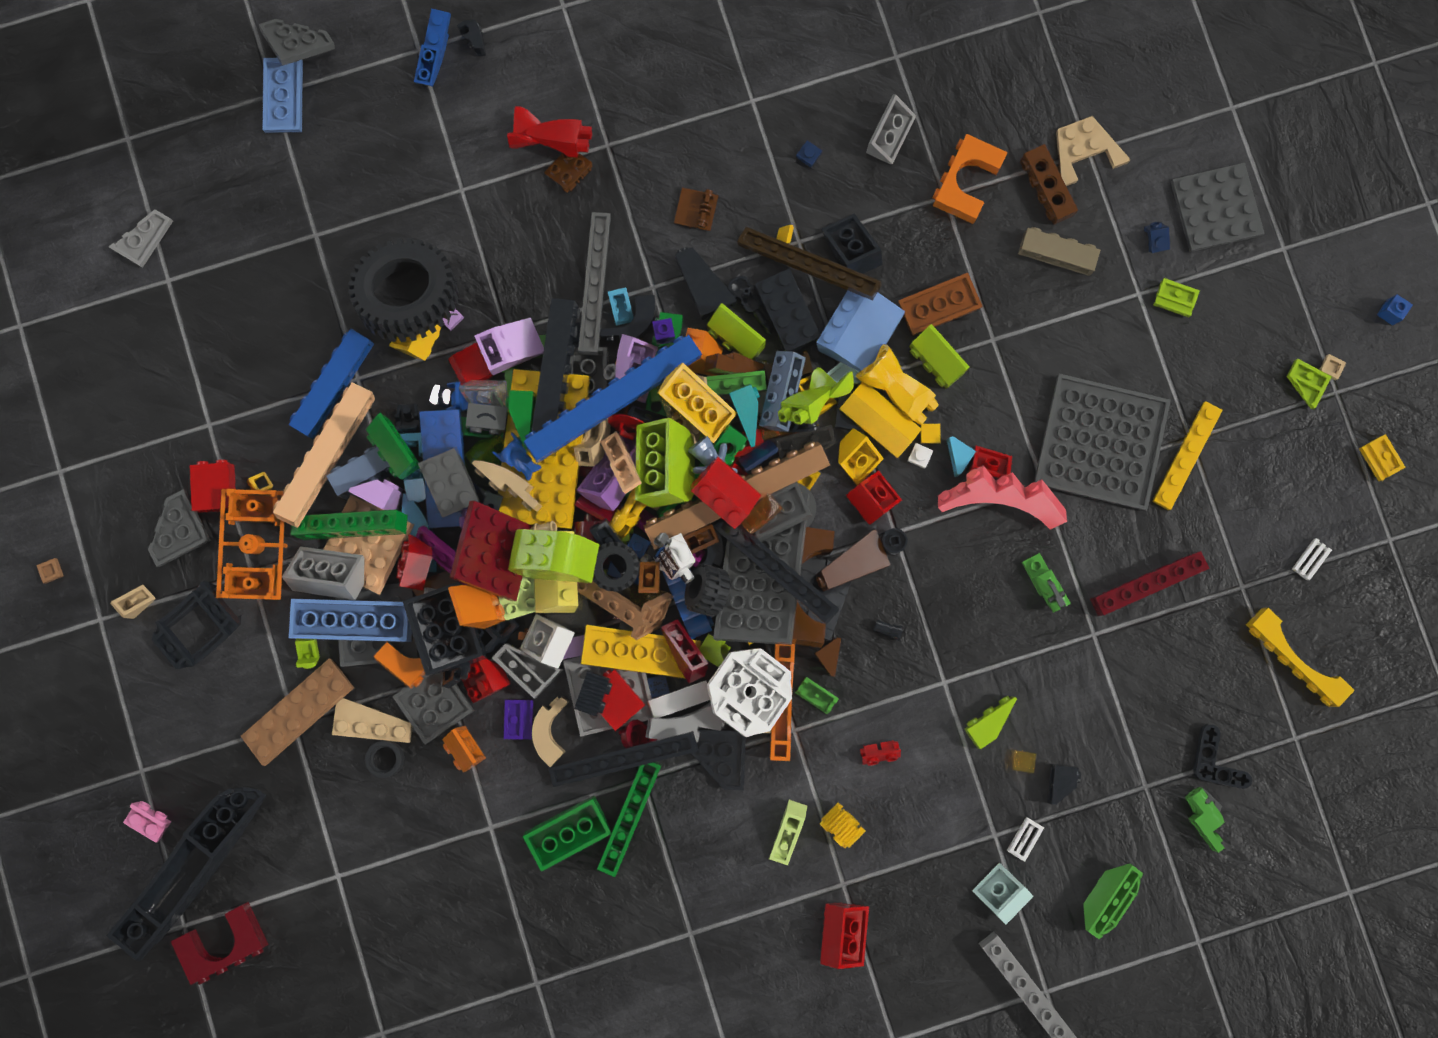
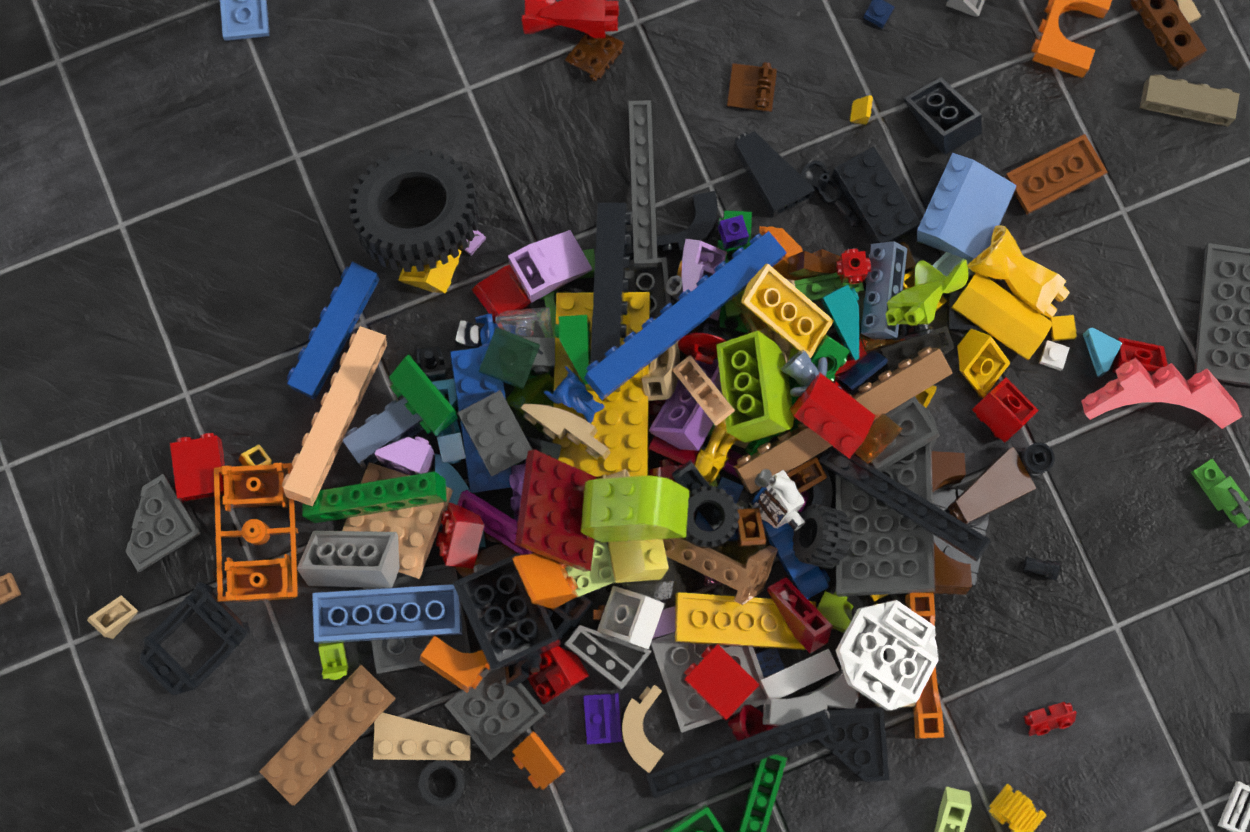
camera: 10 degrees left, 5 degrees down
(143, 239) = (87, 179): light grey wing -> none
(466, 421) = (509, 358): none -> clear green plate
(593, 693) = (696, 675): black brick -> none
(621, 306) = (675, 208): medium azure slope -> none
(735, 333) = (817, 227): lime slope -> none
(755, 376) = (852, 274): none -> red brick
(809, 263) = (897, 138): dark brown plate -> none
(816, 695) = (964, 655): bright green hinge -> none
(829, 656) = (974, 606): reddish brown slope -> none
(938, 357) = (1063, 235): lime slope -> none
(987, 728) = (1178, 674): lime slope -> none
(1024, 761) = (1226, 713): clear yellow plate -> none

